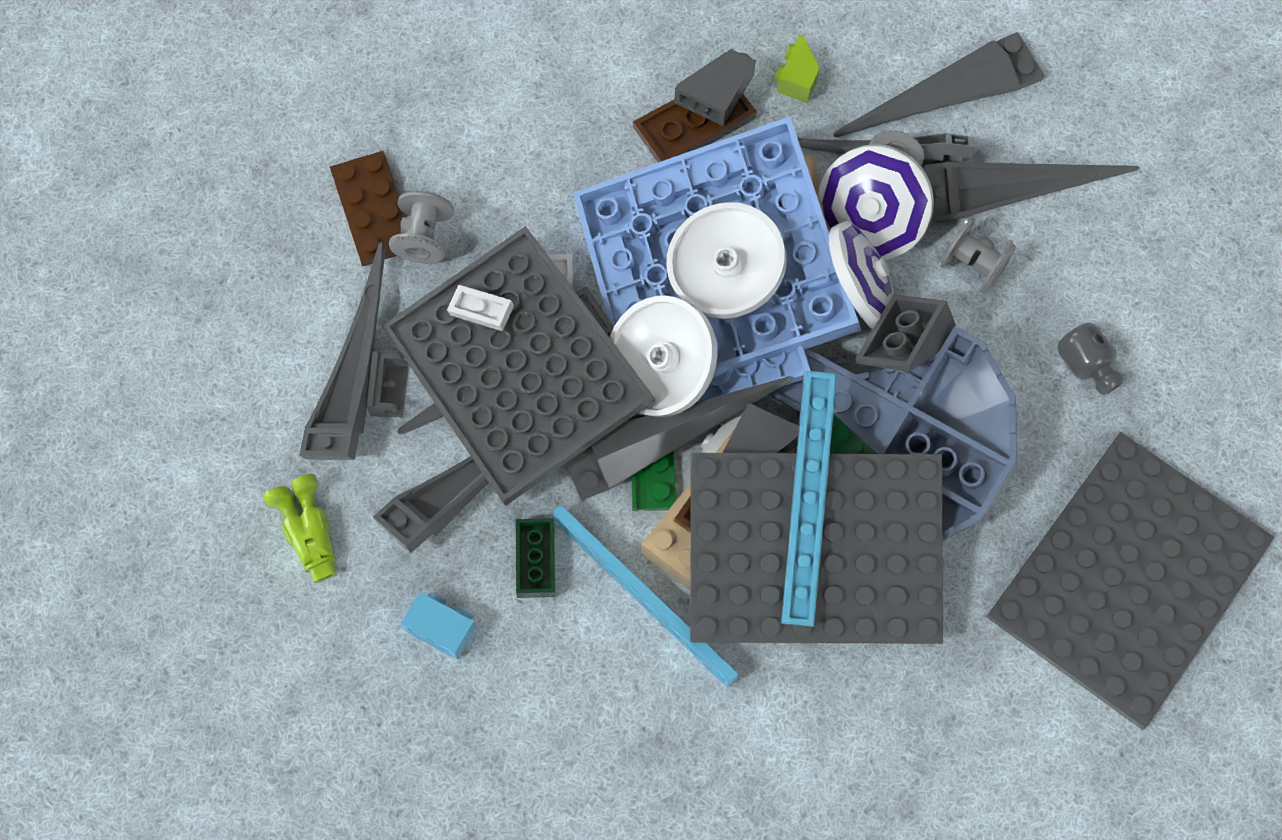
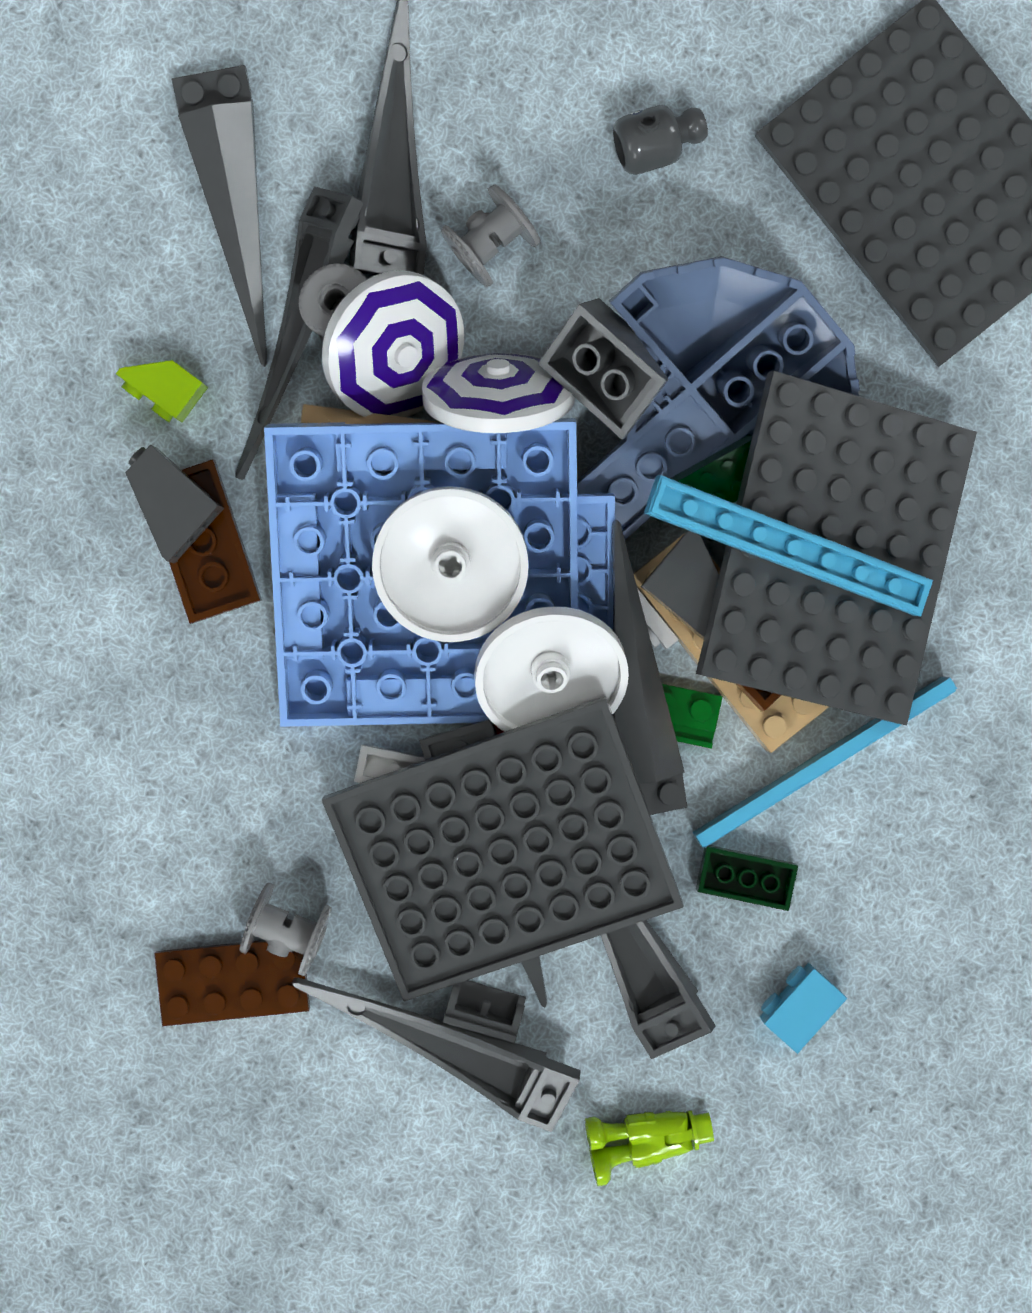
camera: 75 degrees left, 20 degrees up
(480, 307) = (424, 881): white plate -> none

